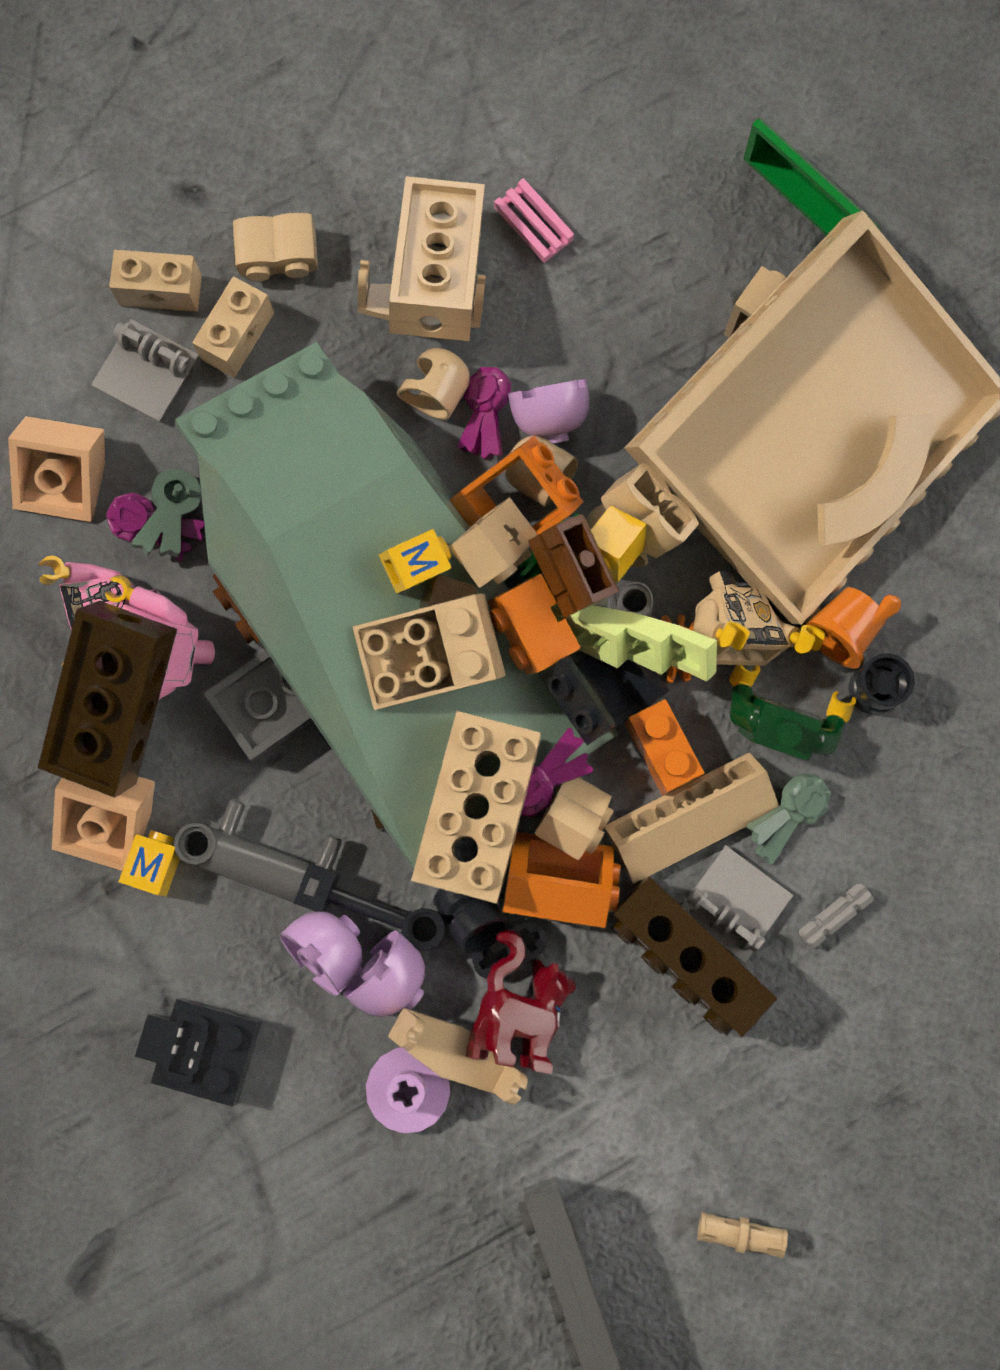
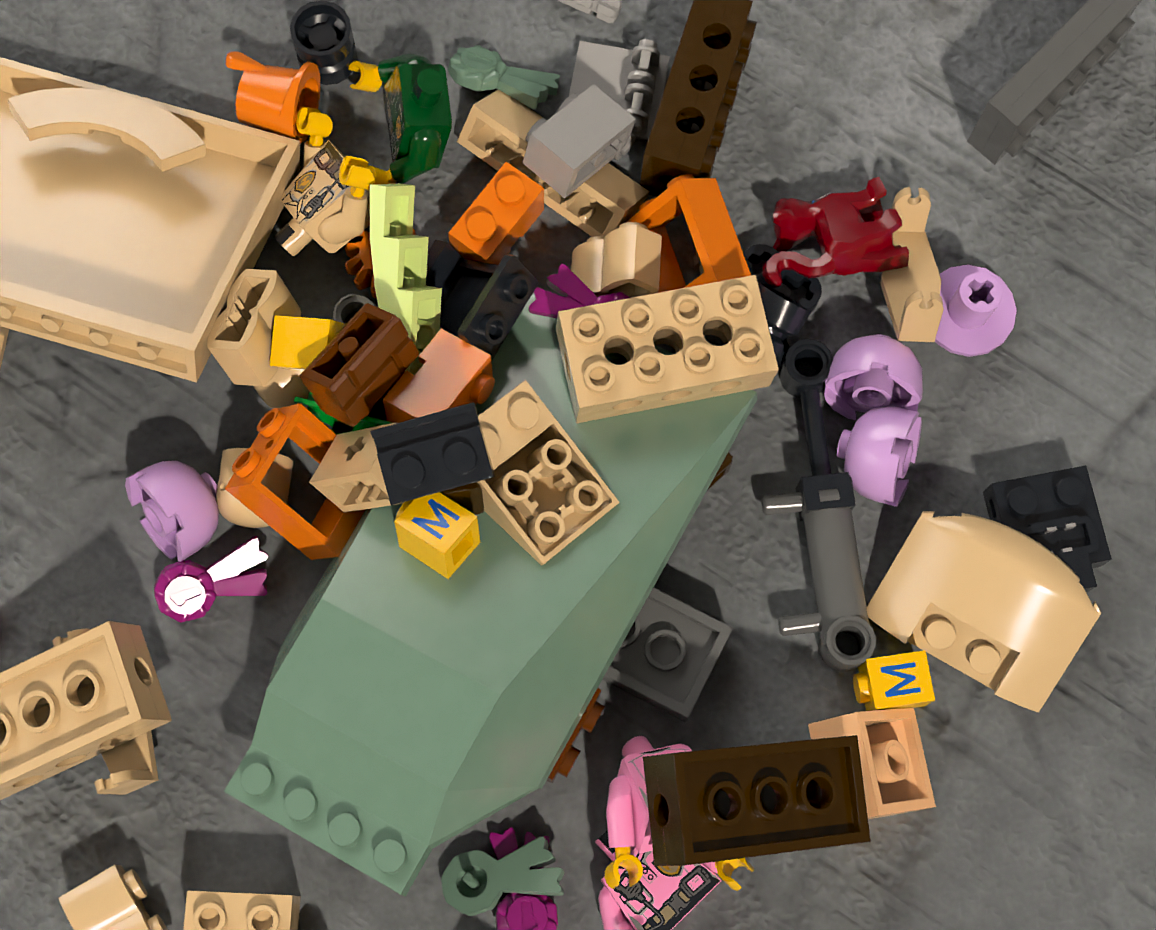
camera: 120 degrees left, 5 degrees down
(168, 963) = (986, 604): none -> tan slope
(441, 388) = (203, 642): tan helmet -> none
(466, 576) = (432, 453): none -> black plate
(693, 837) = (578, 140): none -> light grey hinge

